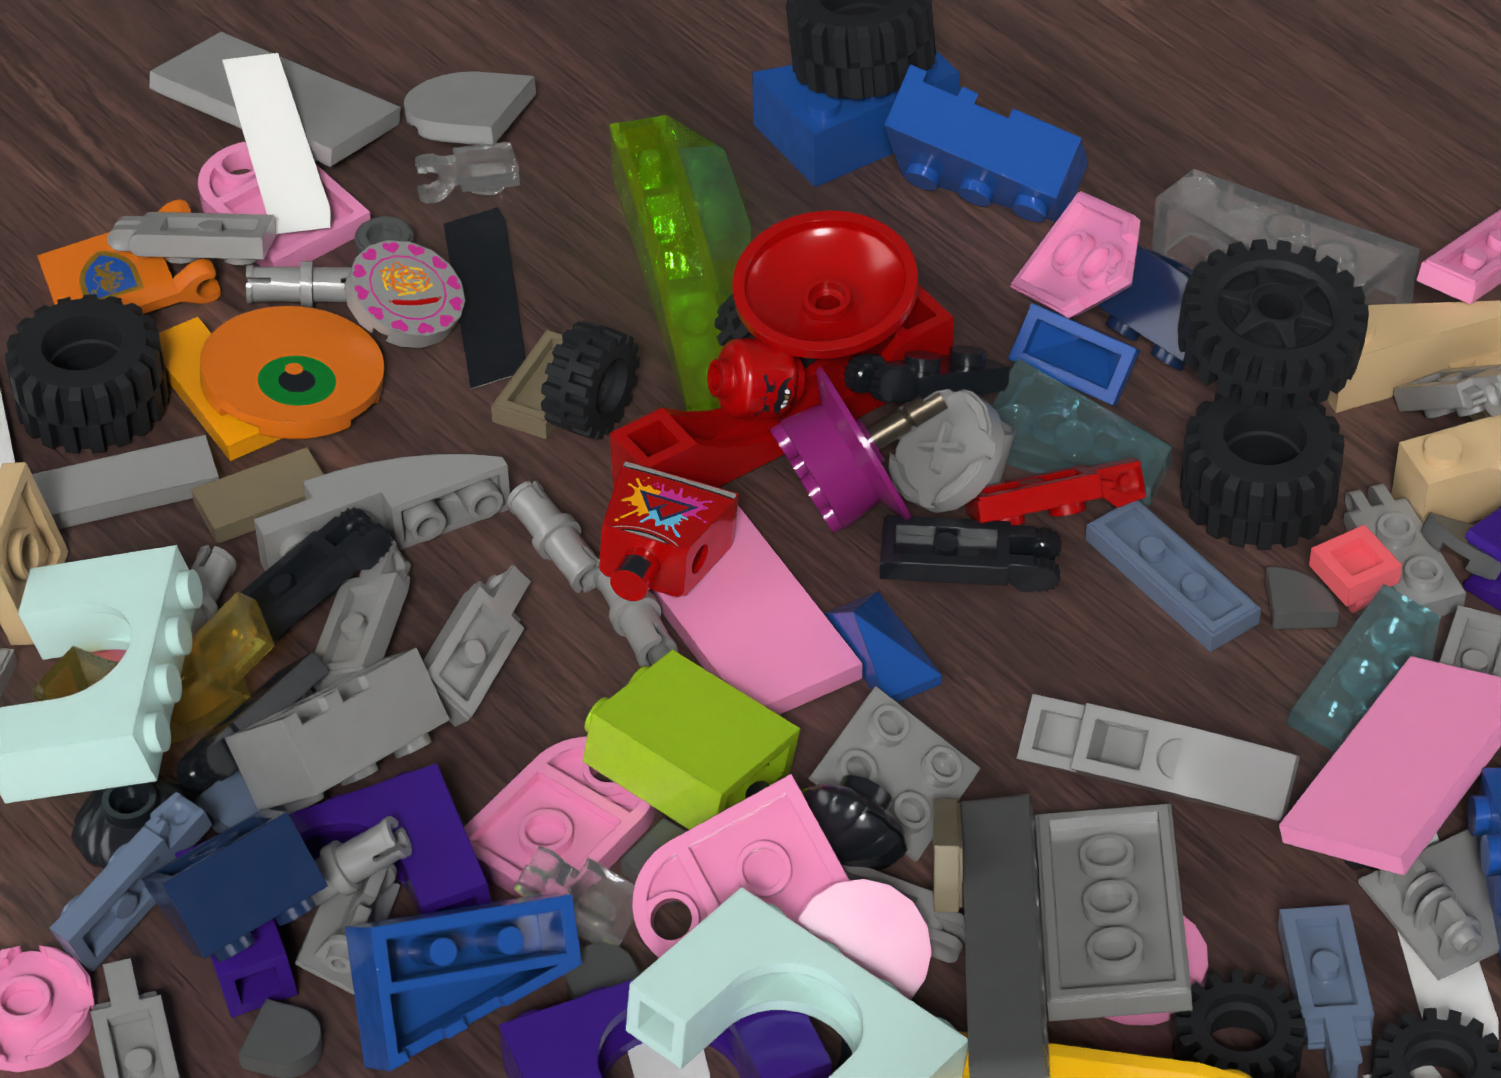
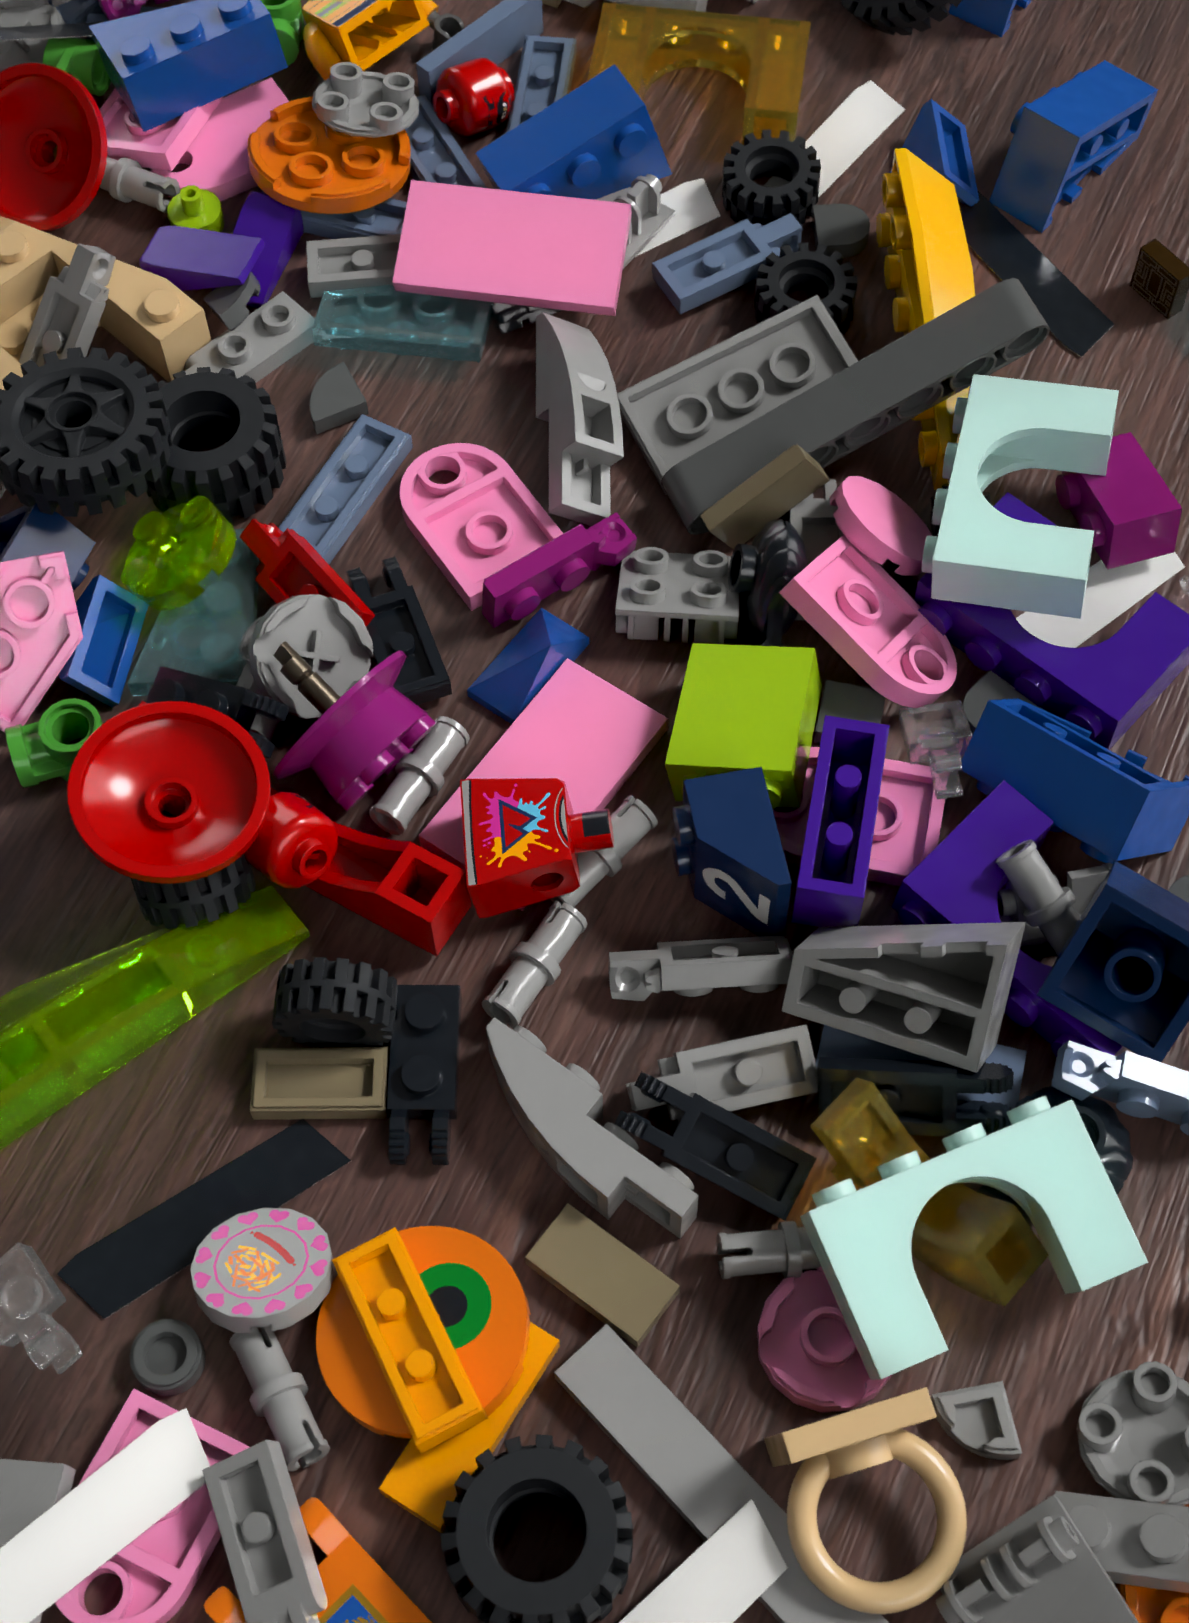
camera: 115 degrees left, 15 degrees up
(285, 346) = (409, 1340): none -> light orange tile
(527, 748) = (840, 823): none -> dark purple brick
(528, 446) = (424, 1067): none -> black hinge
(544, 669) = (733, 849): none -> dark blue slope
(797, 521) = (419, 775): none -> light grey pin
(971, 690) = (554, 566): none -> magenta hinge
(973, 294) = (42, 748): none -> bright green piece
(1078, 657) = (476, 520): none -> bright pink tile
(1134, 412) = (177, 553): none -> clear neon green plate
(1355, 567) = (298, 353): coral tile -> none

